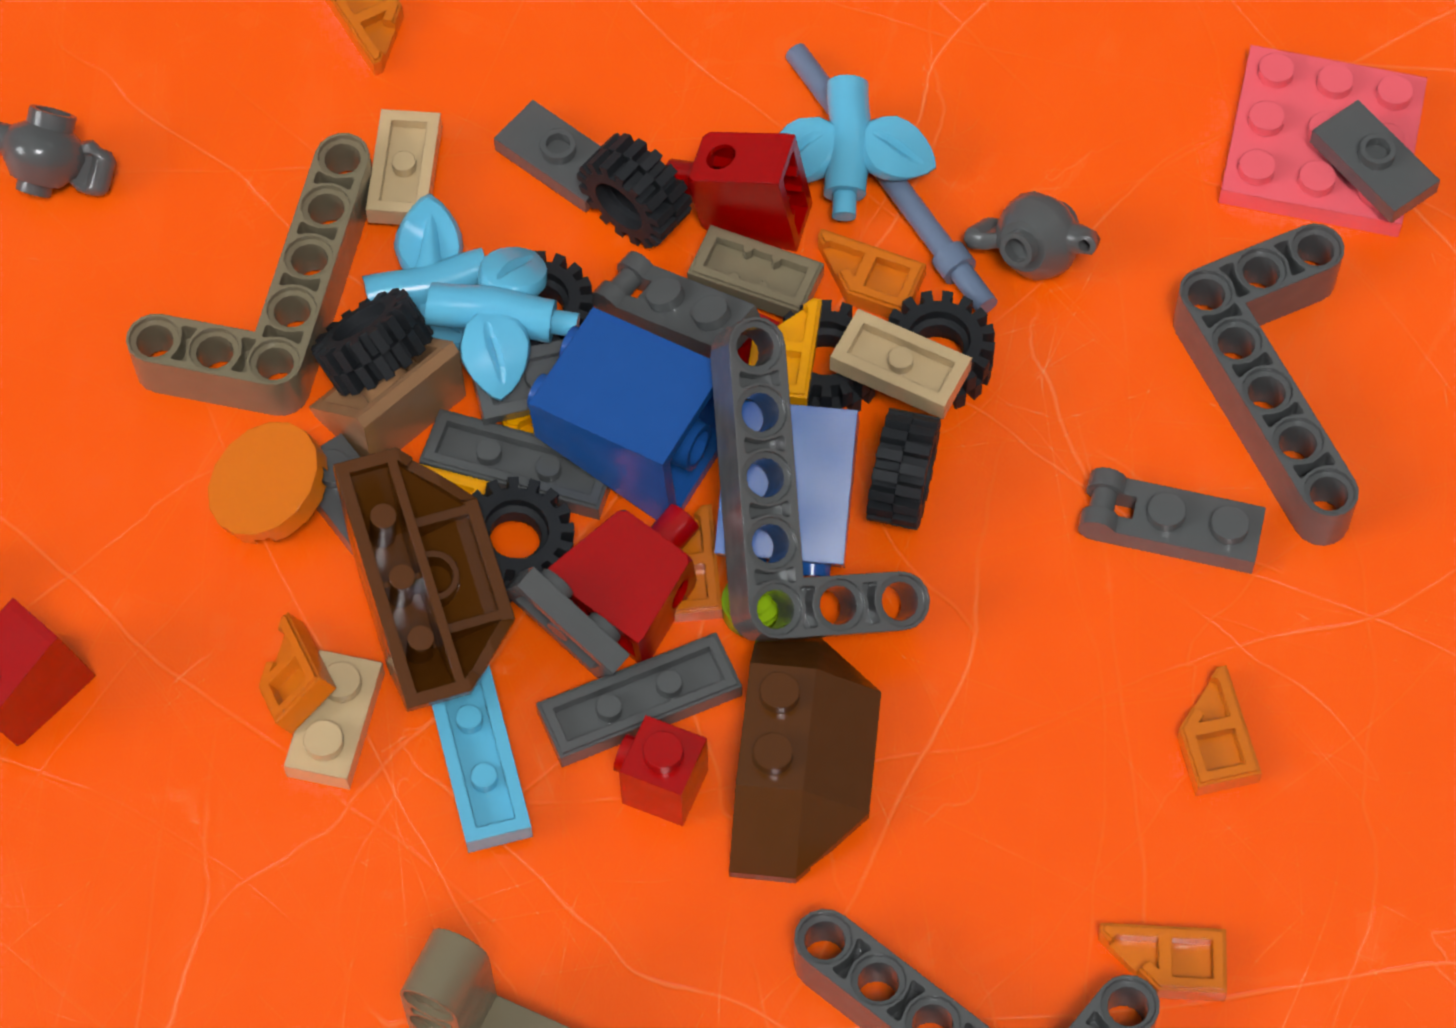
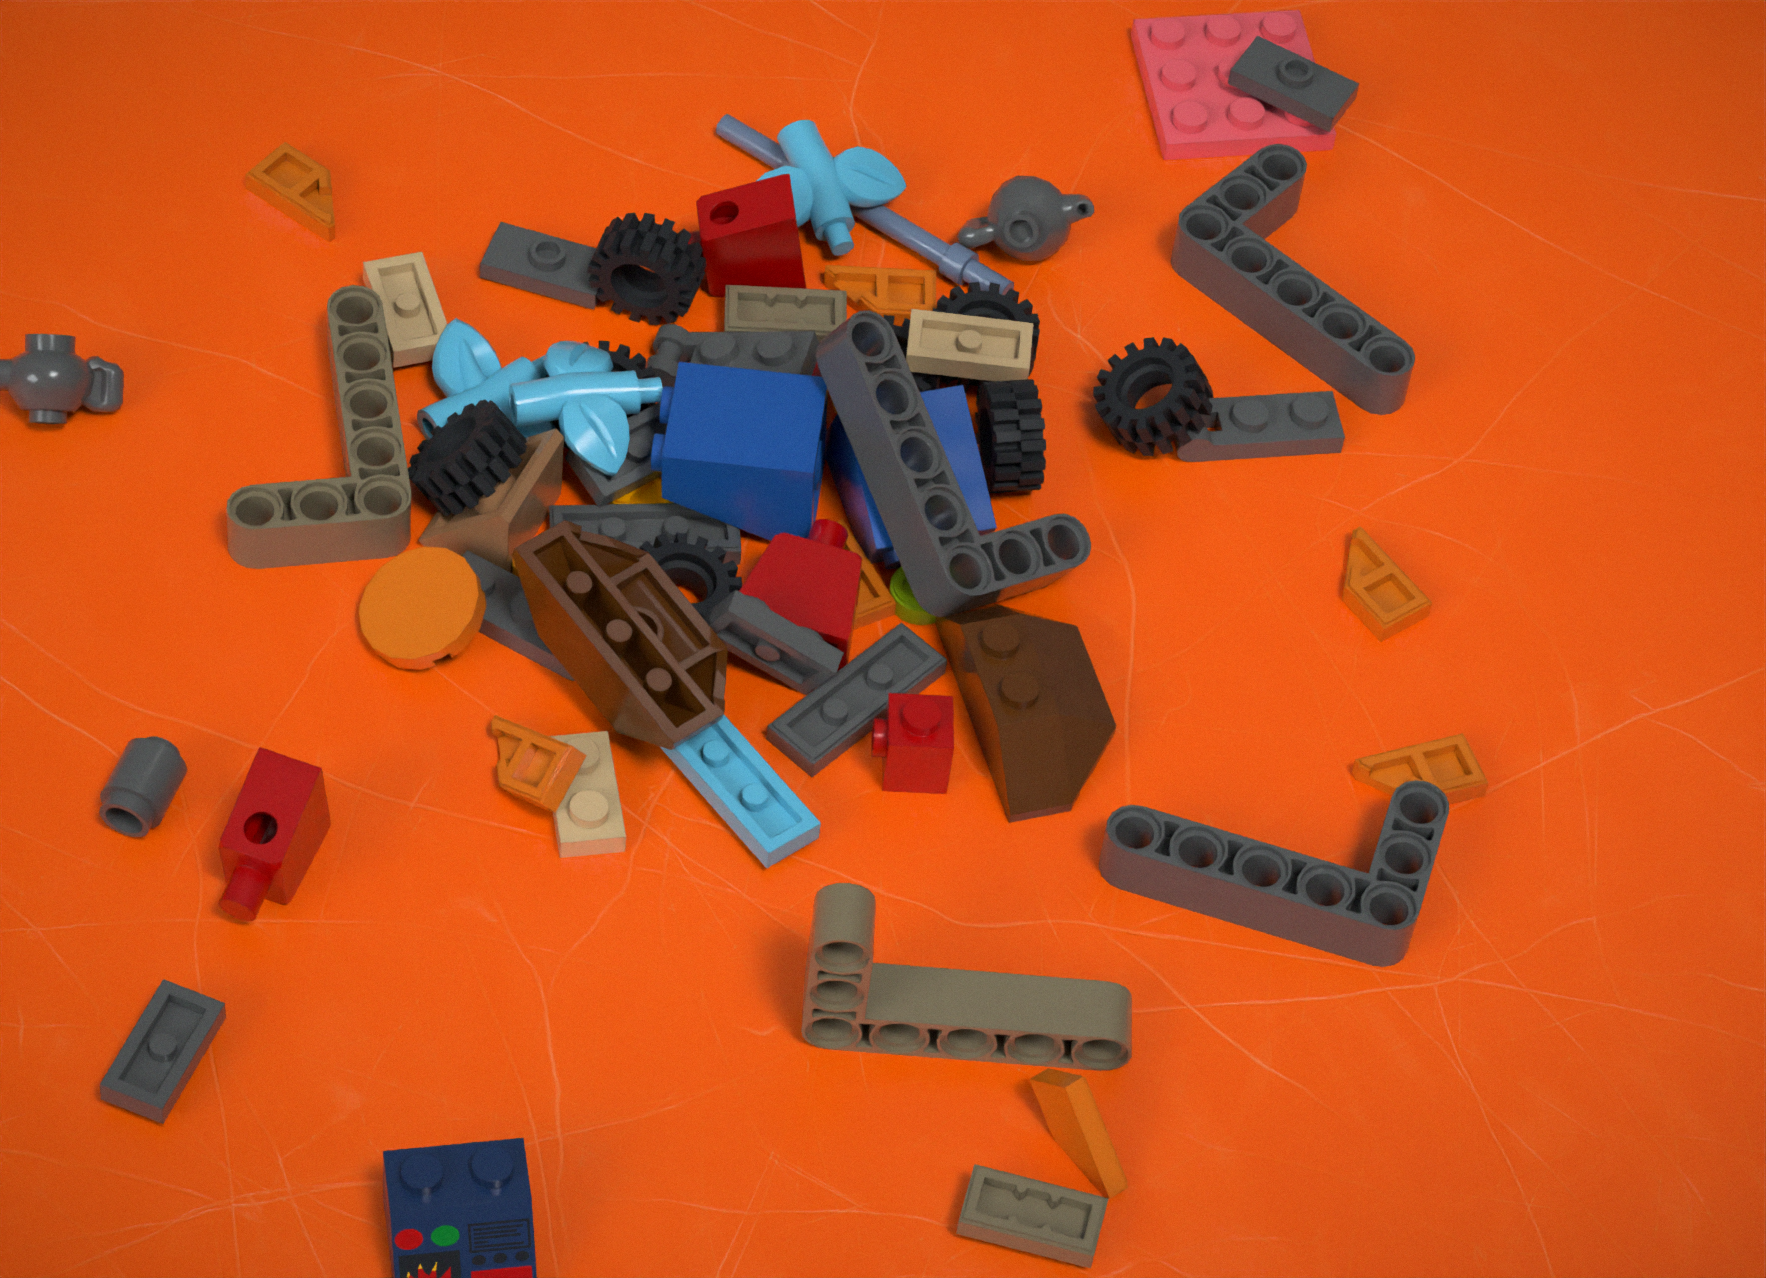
camera: 30 degrees left, 10 degrees down
(1086, 487) = (1167, 418): none -> black tyre

